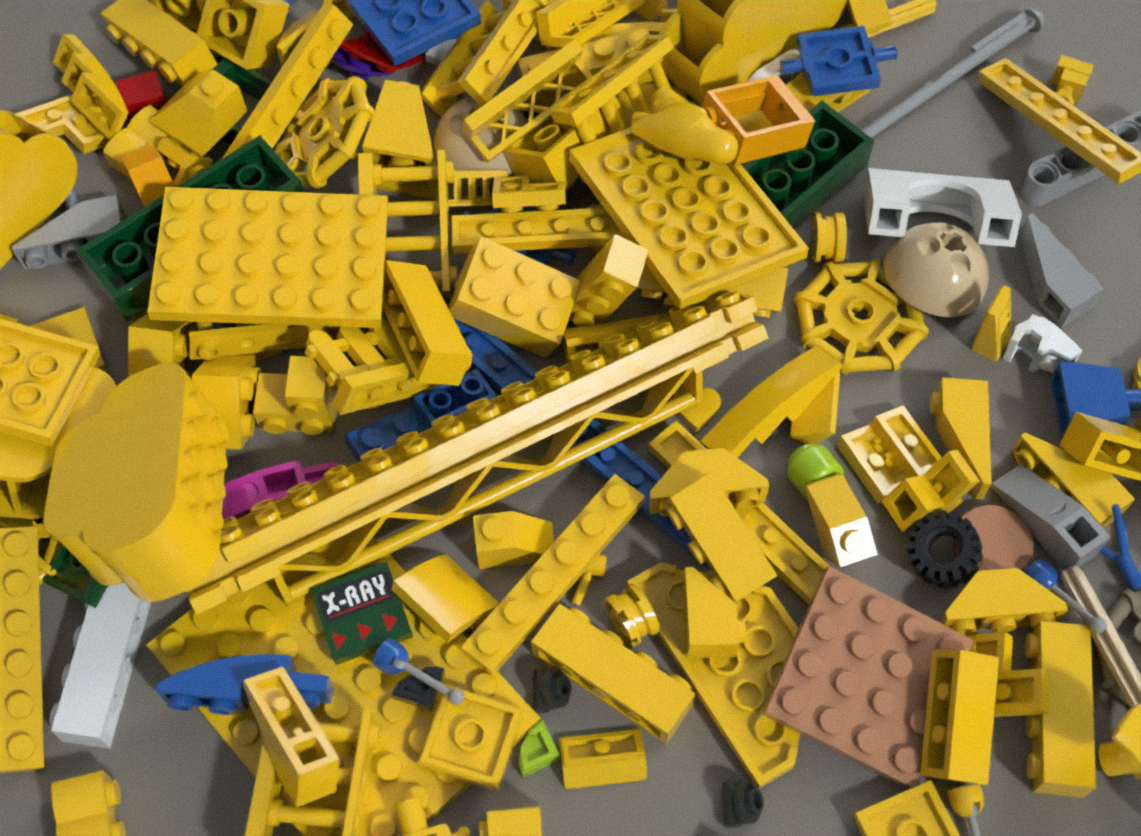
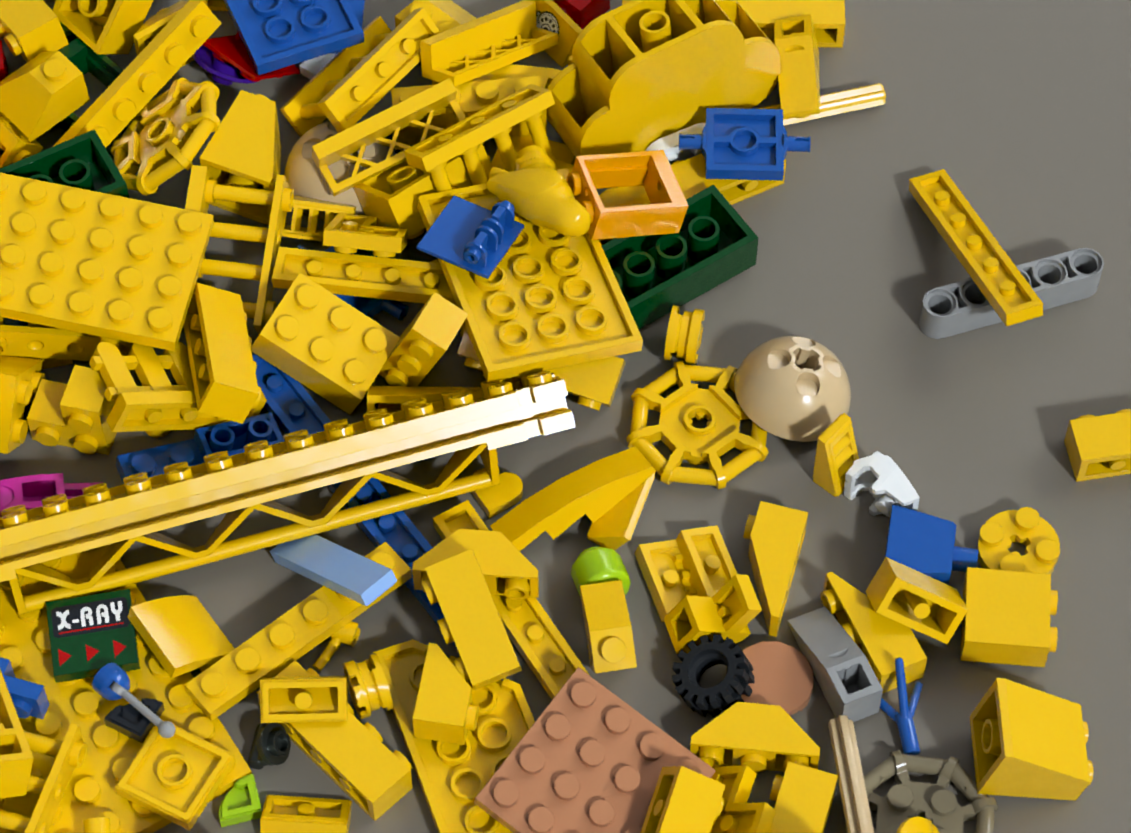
camera: 10 degrees right, 5 degrees down
(510, 539) = (261, 589): yellow slope -> none
(578, 508) = (335, 568): none -> light blue tile
(578, 641) = (303, 699): none -> yellow slope
(631, 177) = (472, 235): none -> blue hinge
(981, 202) = (775, 299): white arch -> none
(1029, 19) = (921, 156): light grey bar -> none
(1048, 577) = (814, 725): hinge -> none
(1058, 279) = (928, 425): light grey slope -> none
(1071, 78) = (1012, 207): yellow piece -> none

